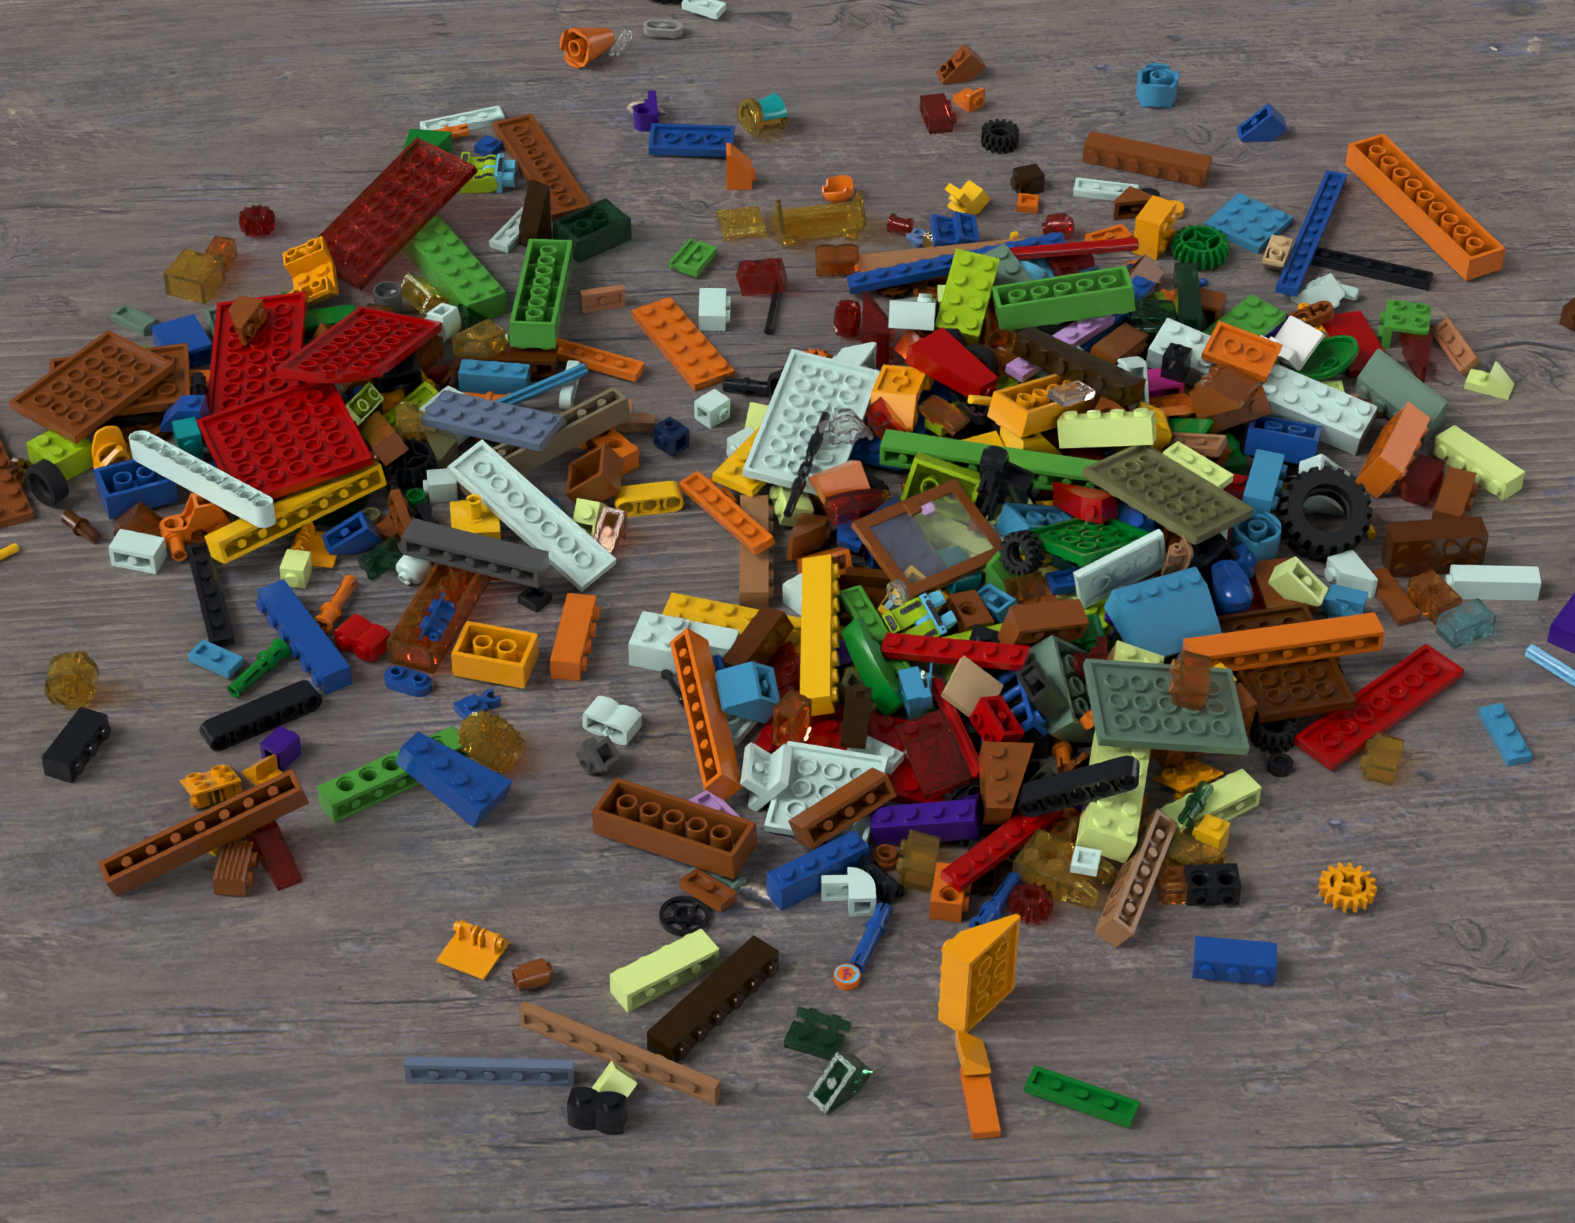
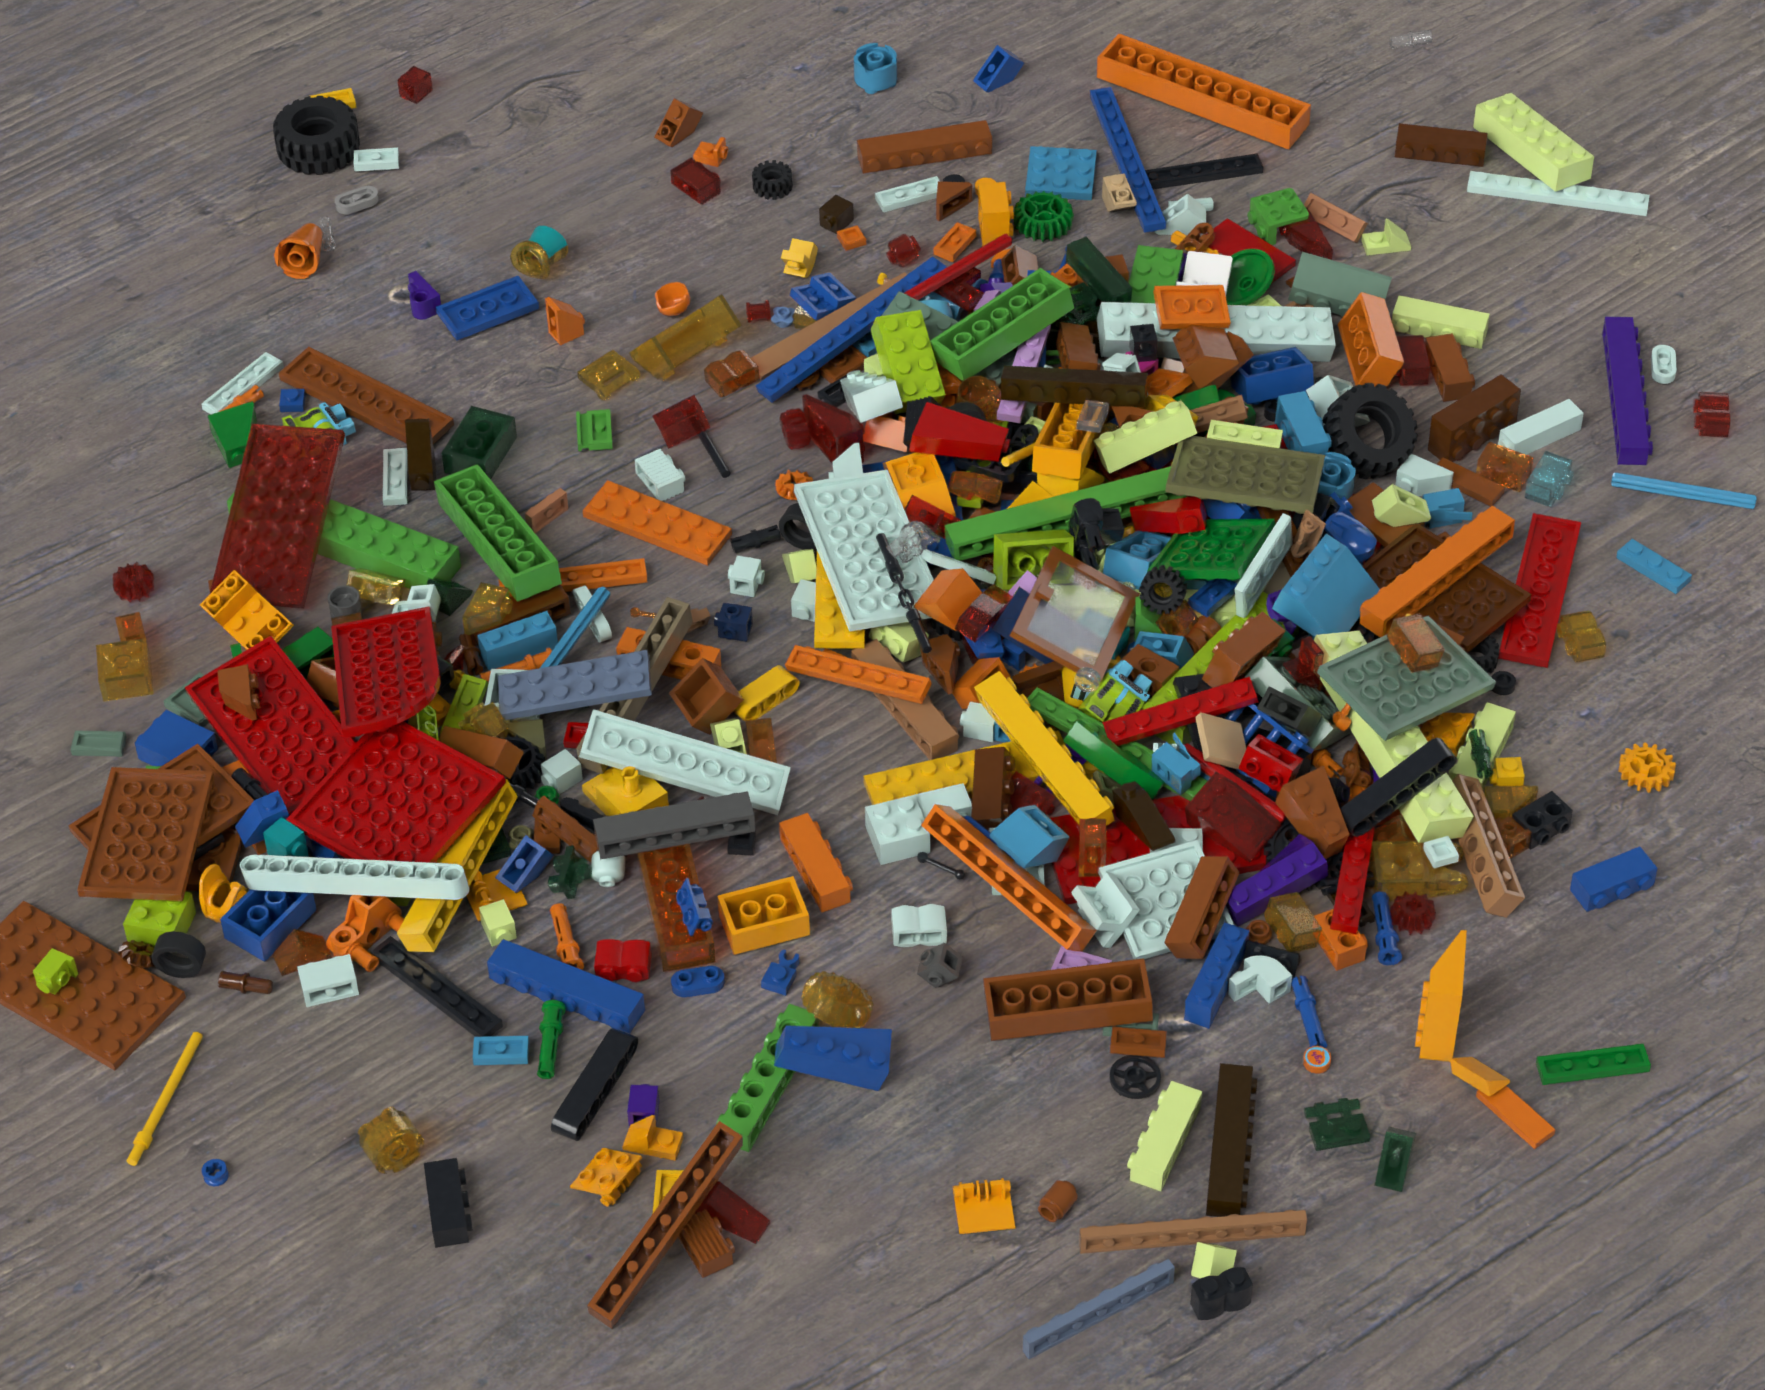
camera: 30 degrees left, 5 degrees up
(876, 467) = (951, 563): none -> light aqua tile

